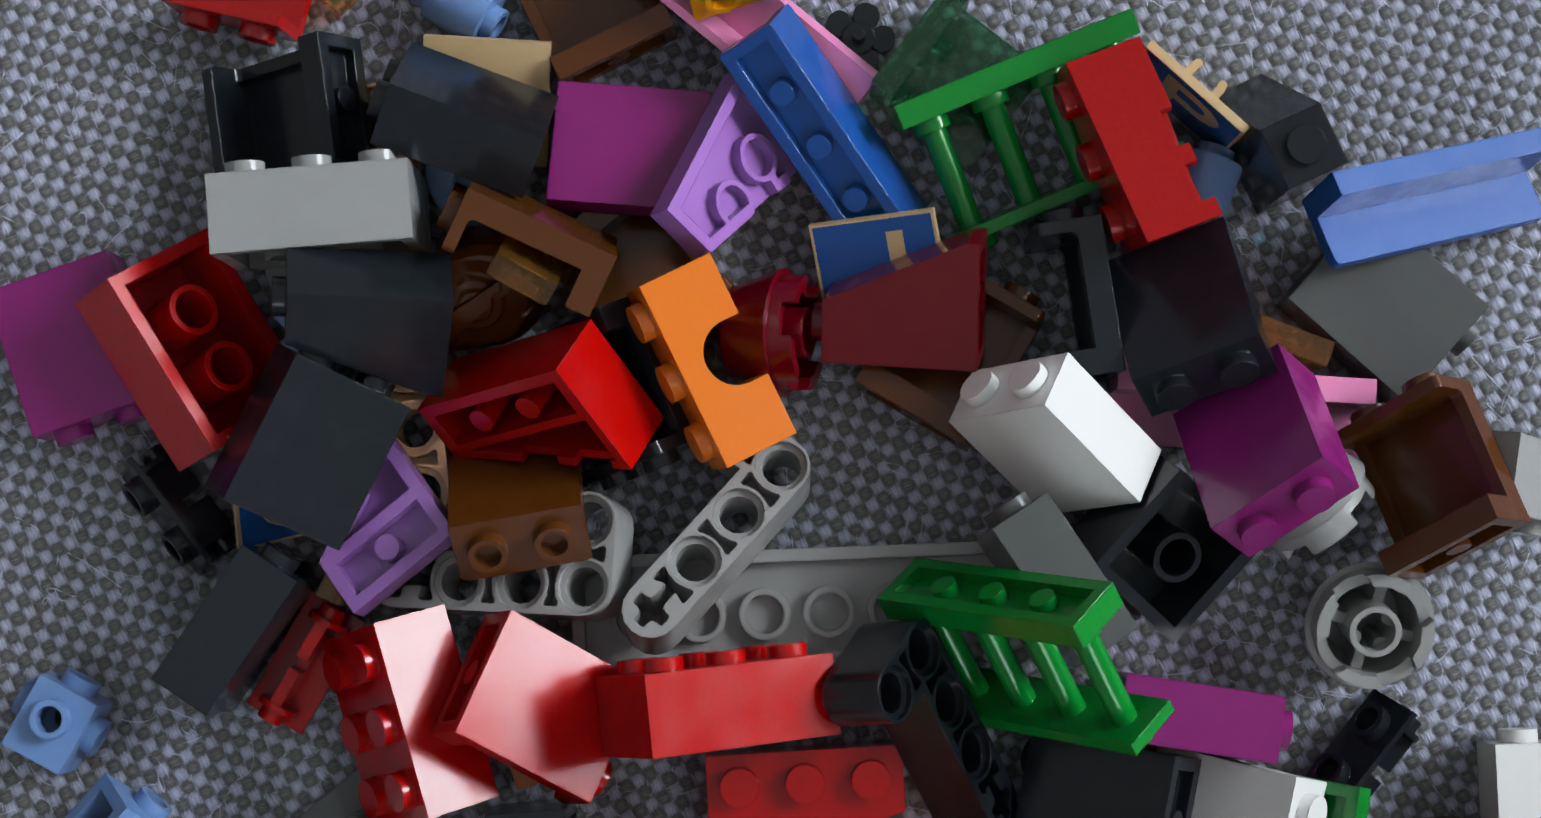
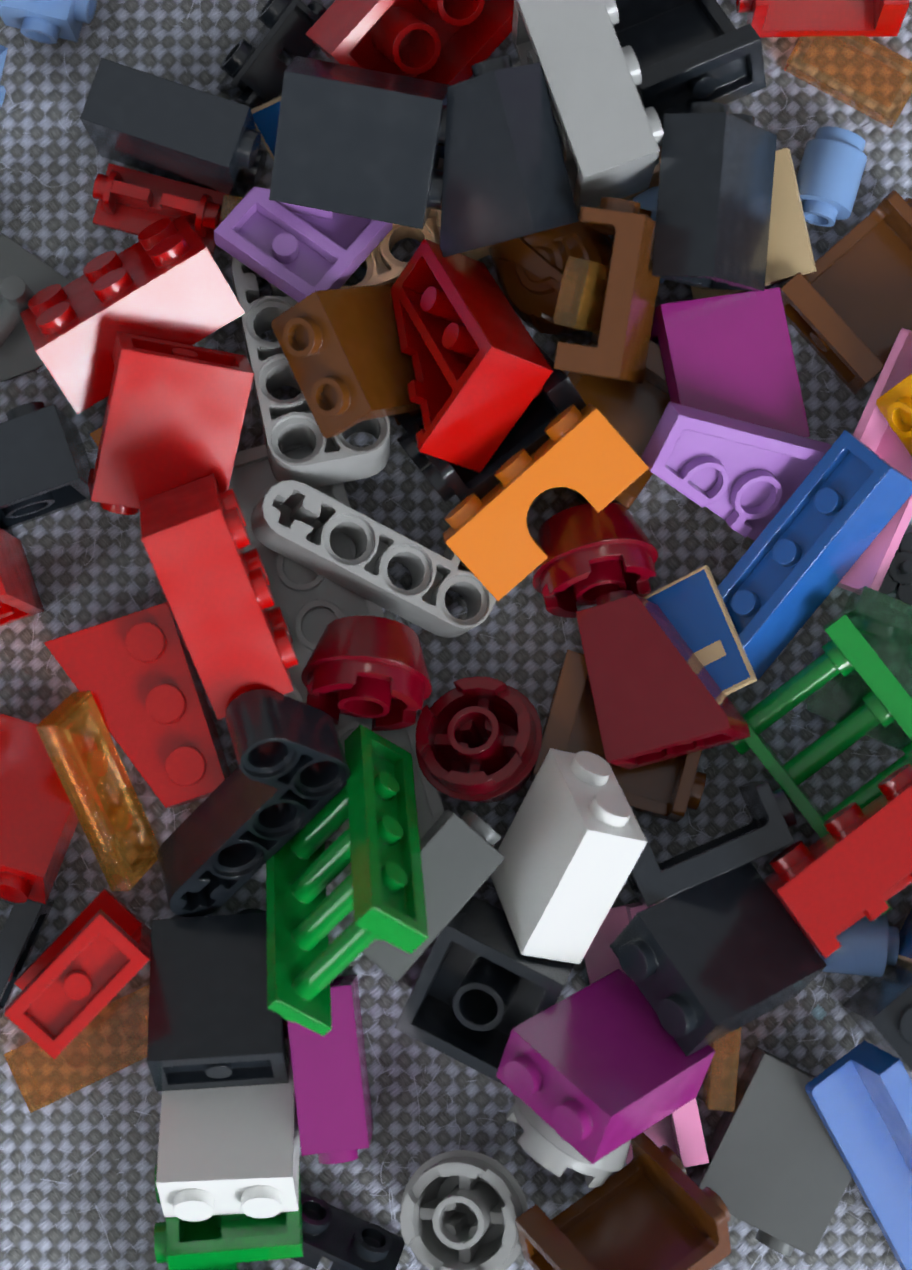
camera: 75 degrees right, 0 degrees up
(827, 577) = (368, 671): none -> dark red cone
(919, 489) = (479, 740): none -> dark red cone

